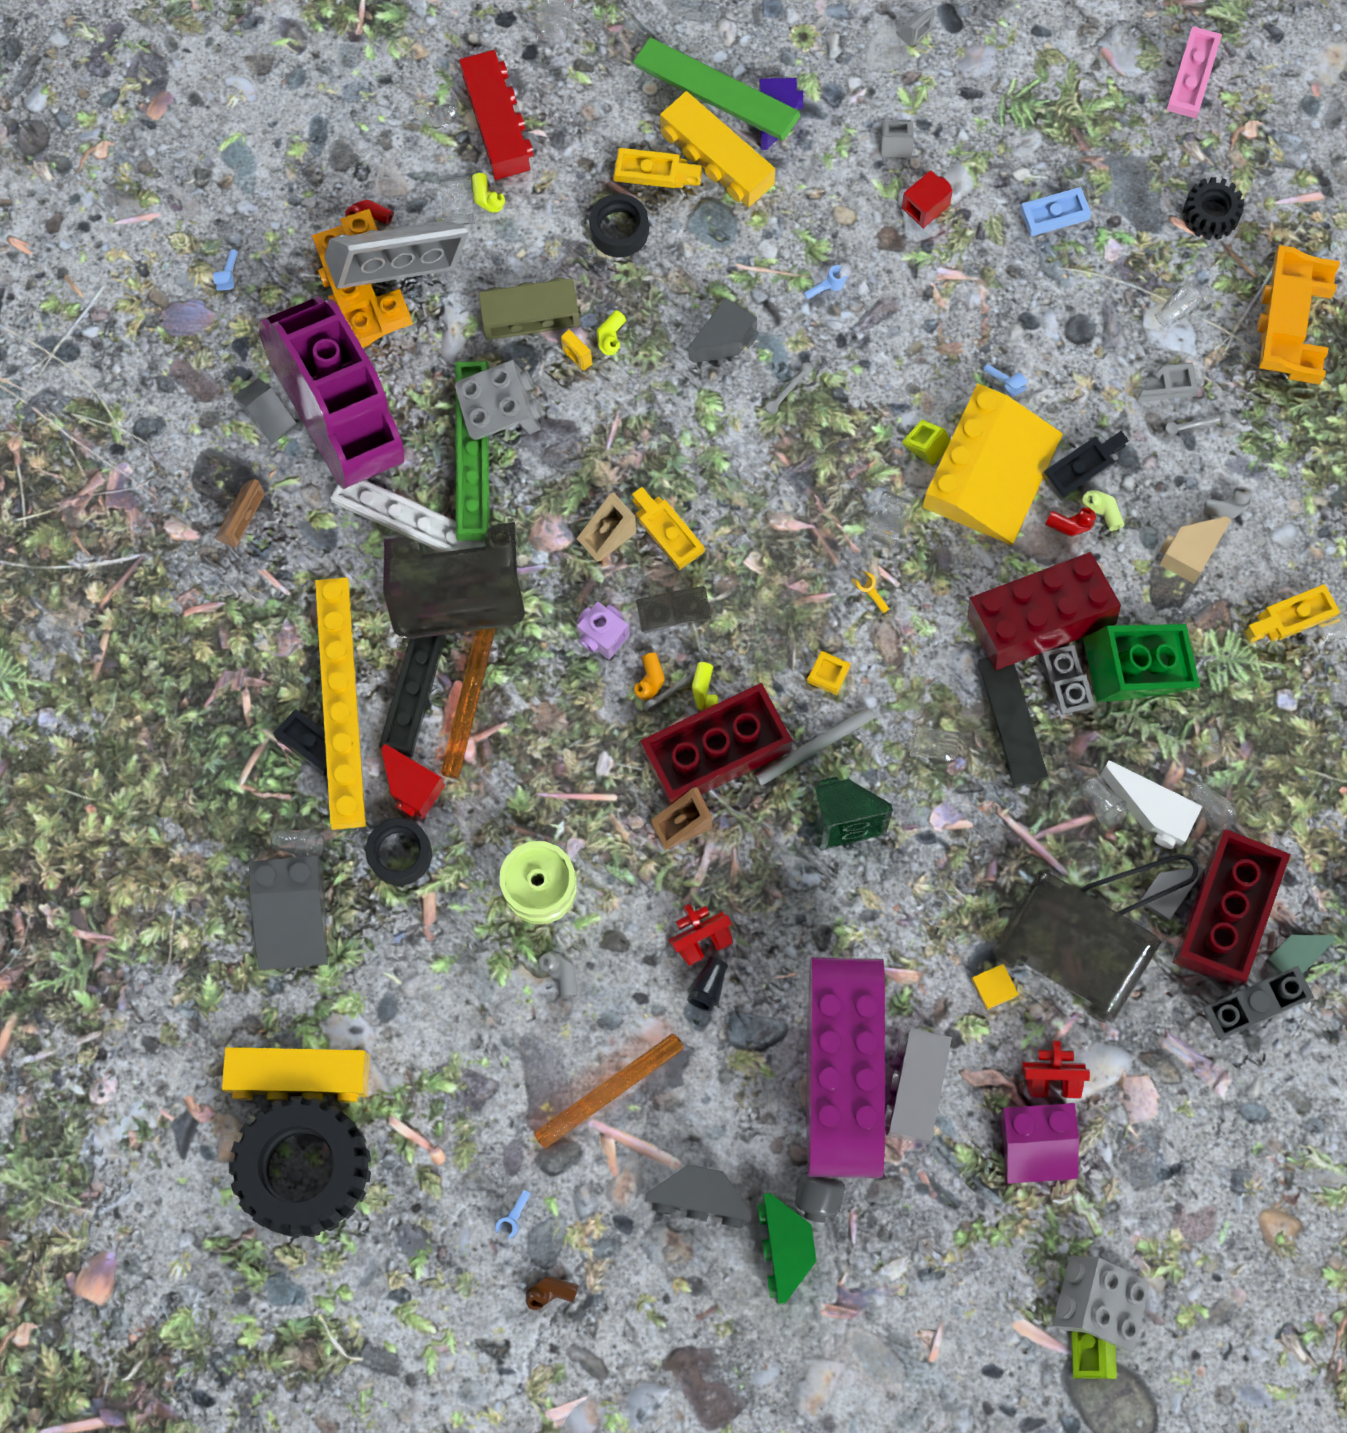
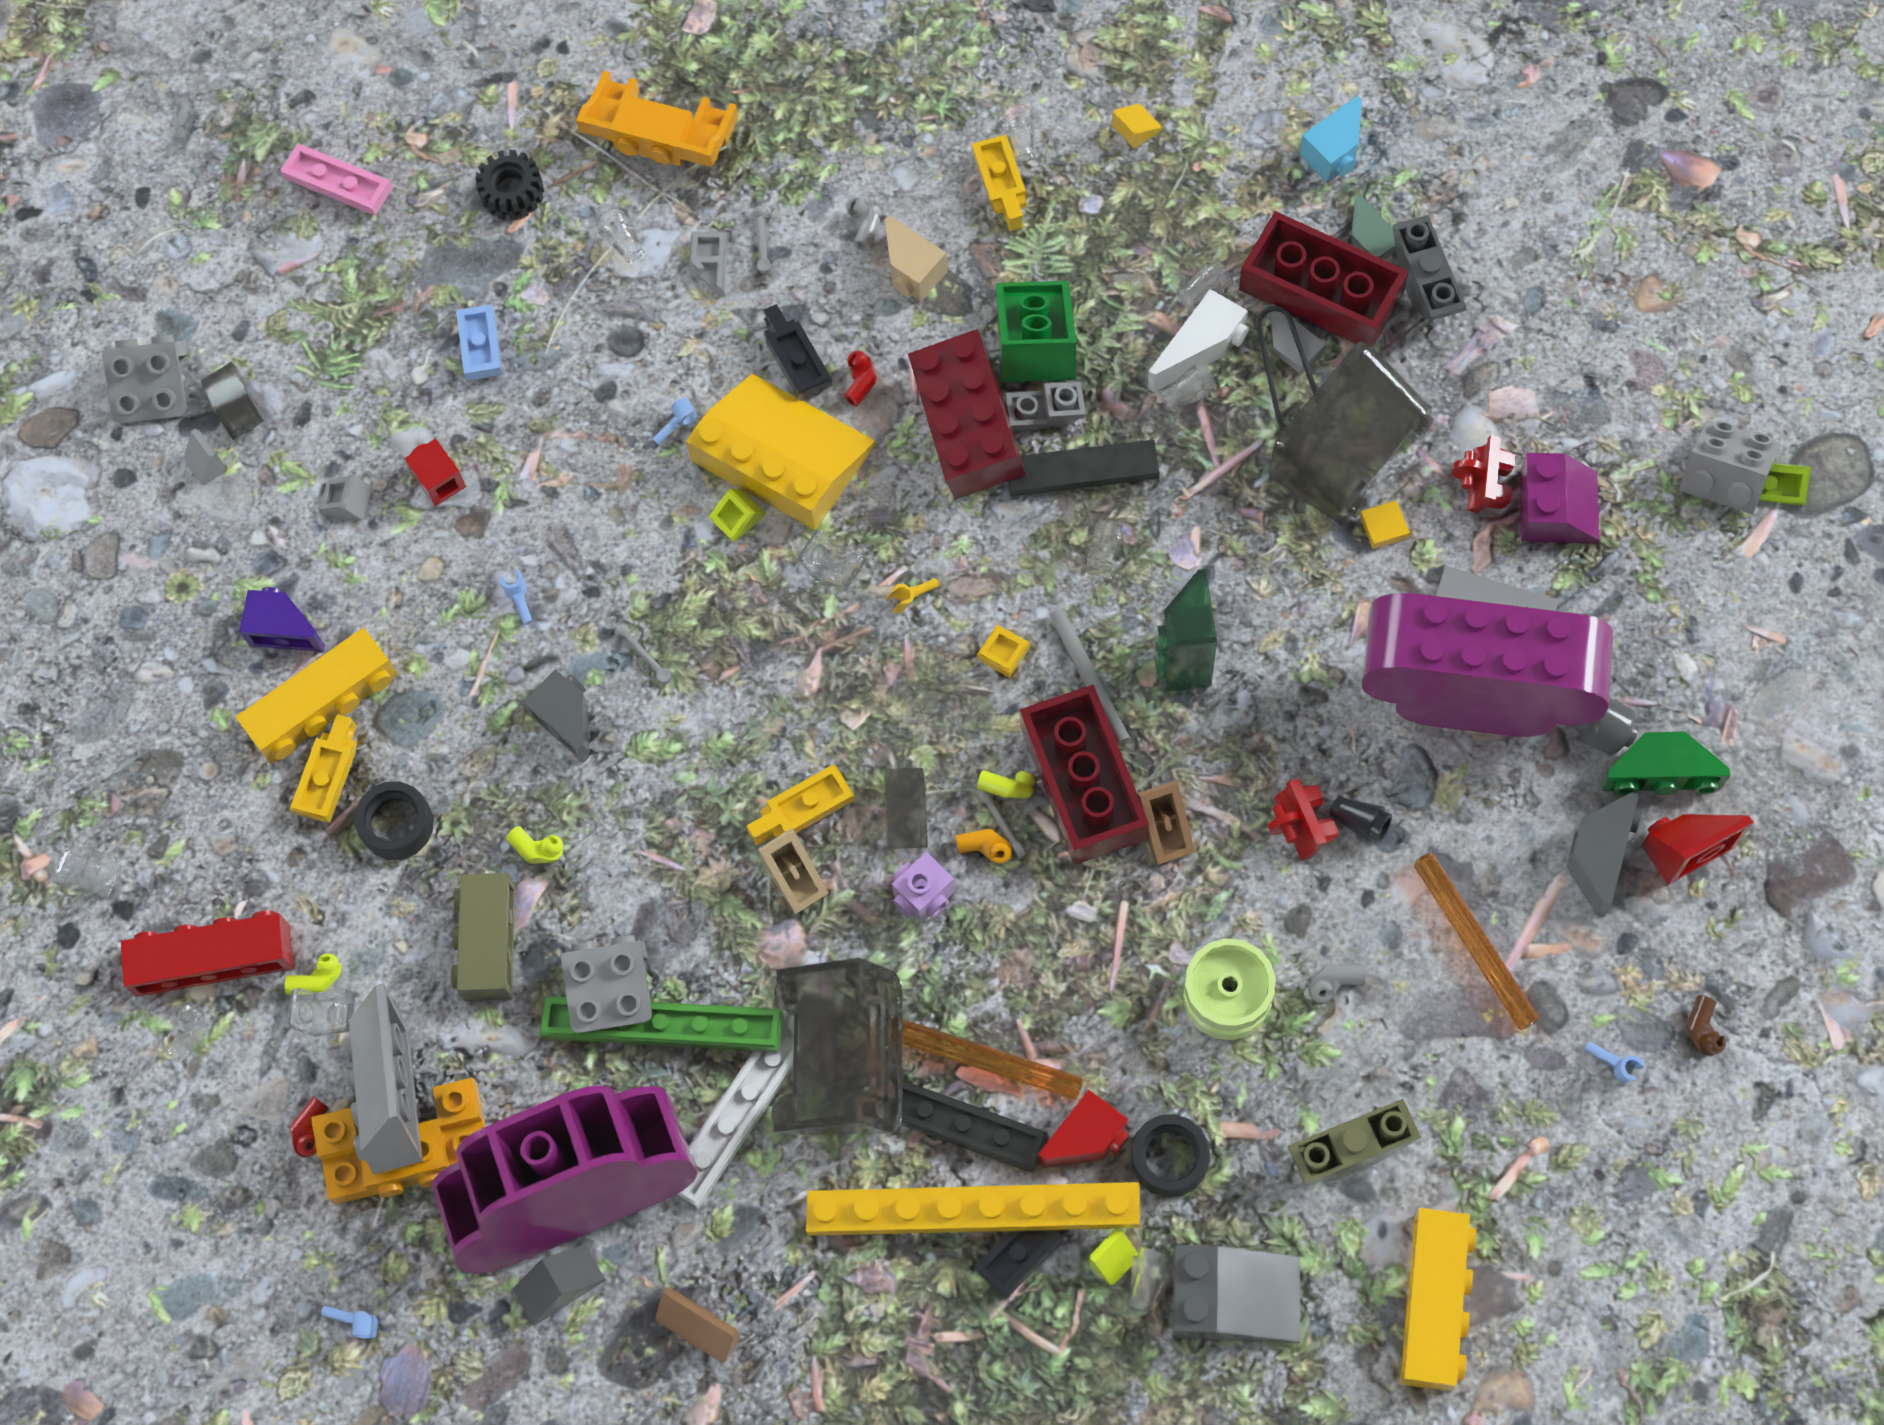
camera: 80 degrees left, 5 degrees down
(256, 1151) = (1598, 1262): black tyre -> none
(312, 814) = (1113, 1257): none -> neon yellow slope
(414, 993) = (1354, 1144): none -> olive slope
(576, 350) = (552, 886): yellow tile -> none
(713, 1269) = (1692, 842): none -> red slope
(717, 89) = (238, 684): bright green tile -> none
(966, 36) = (232, 401): none -> clear smoke slope
(1105, 506) = (846, 342): yellowish green arm -> none

